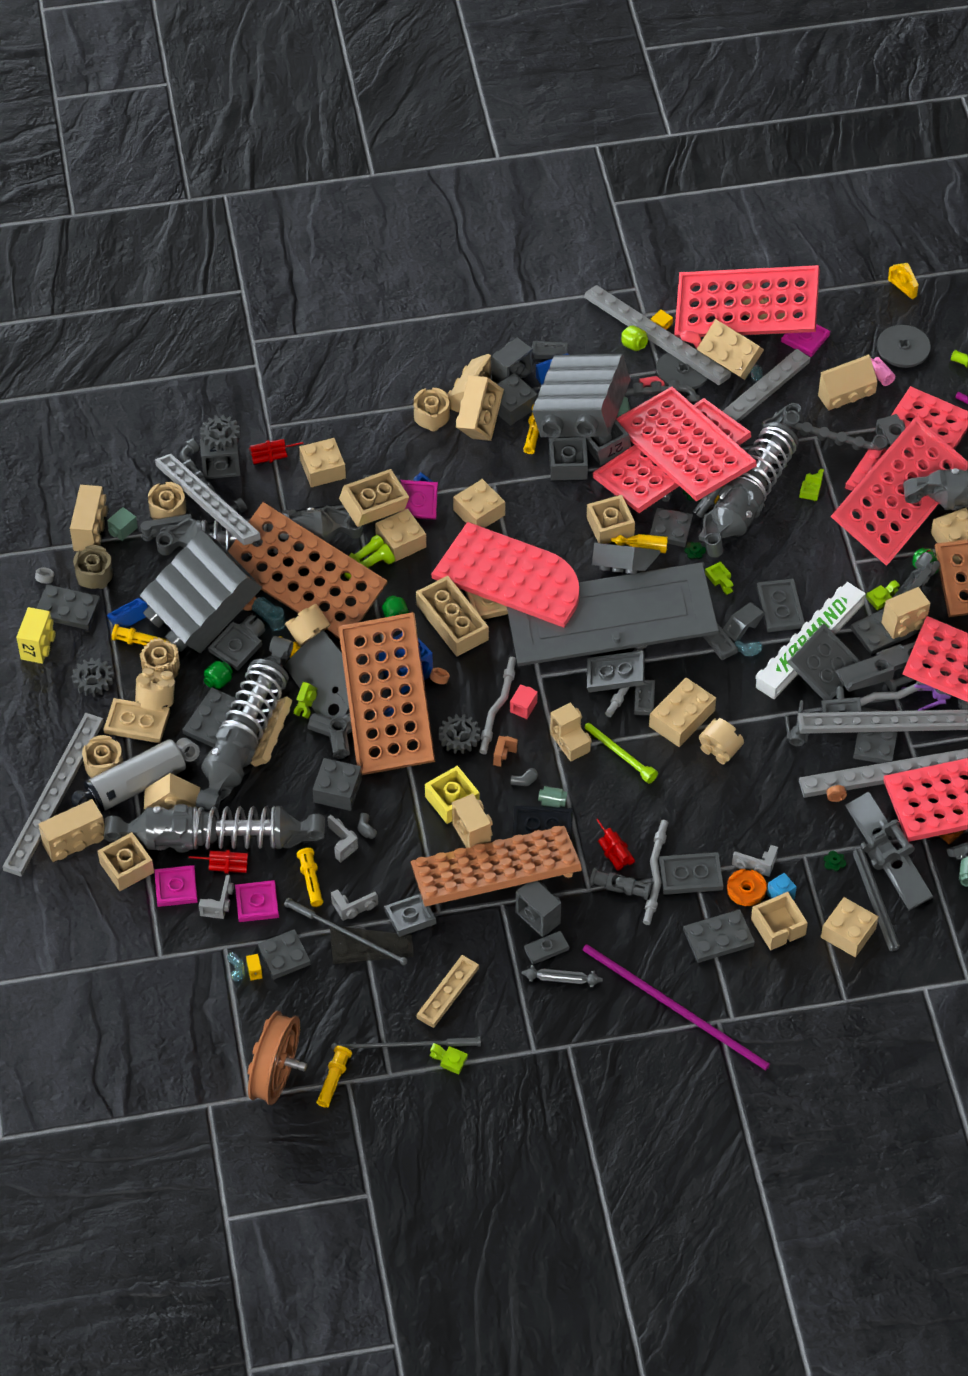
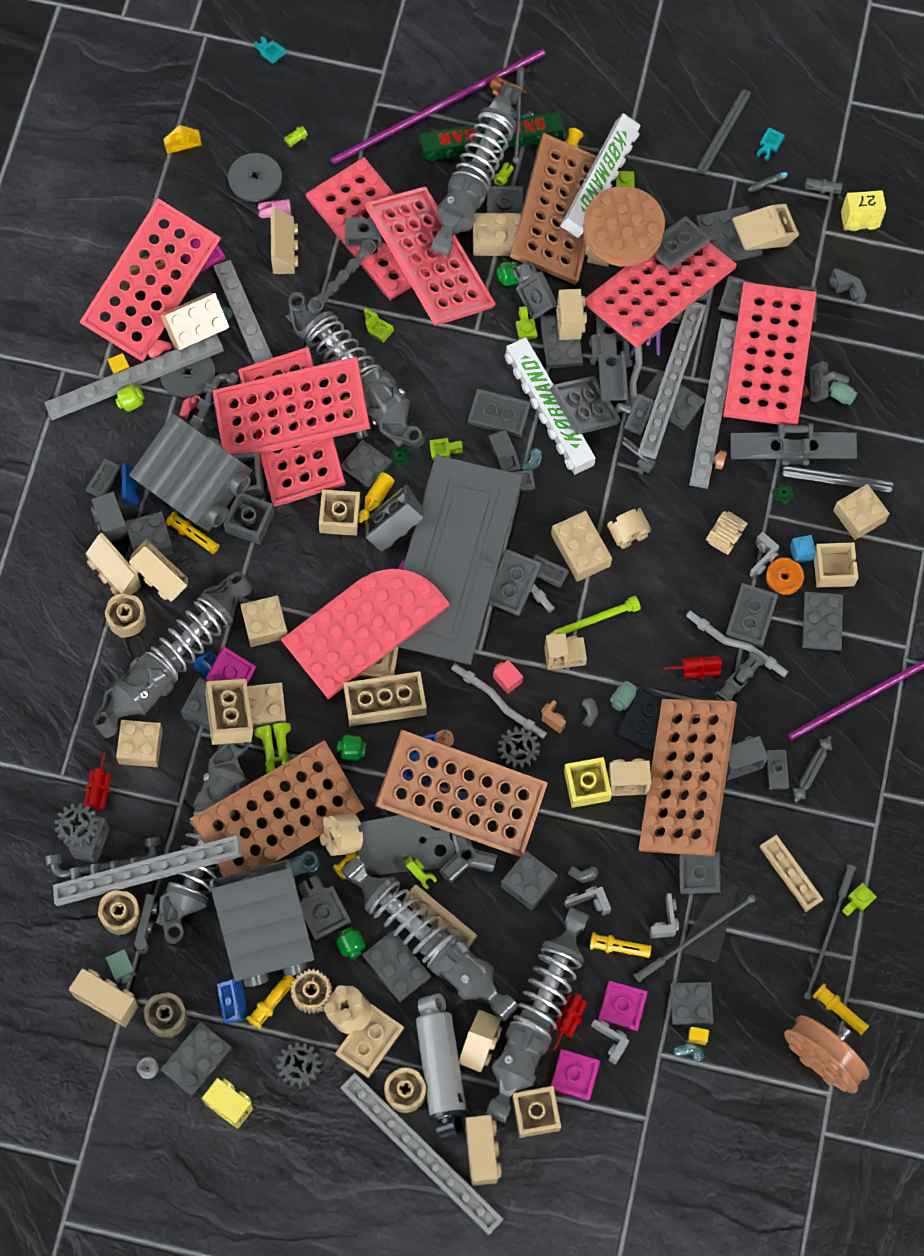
camera: 70 degrees left, 15 degrees up
(392, 445) = (158, 670): none -> piece
(760, 818) = (726, 532): none -> tan brick

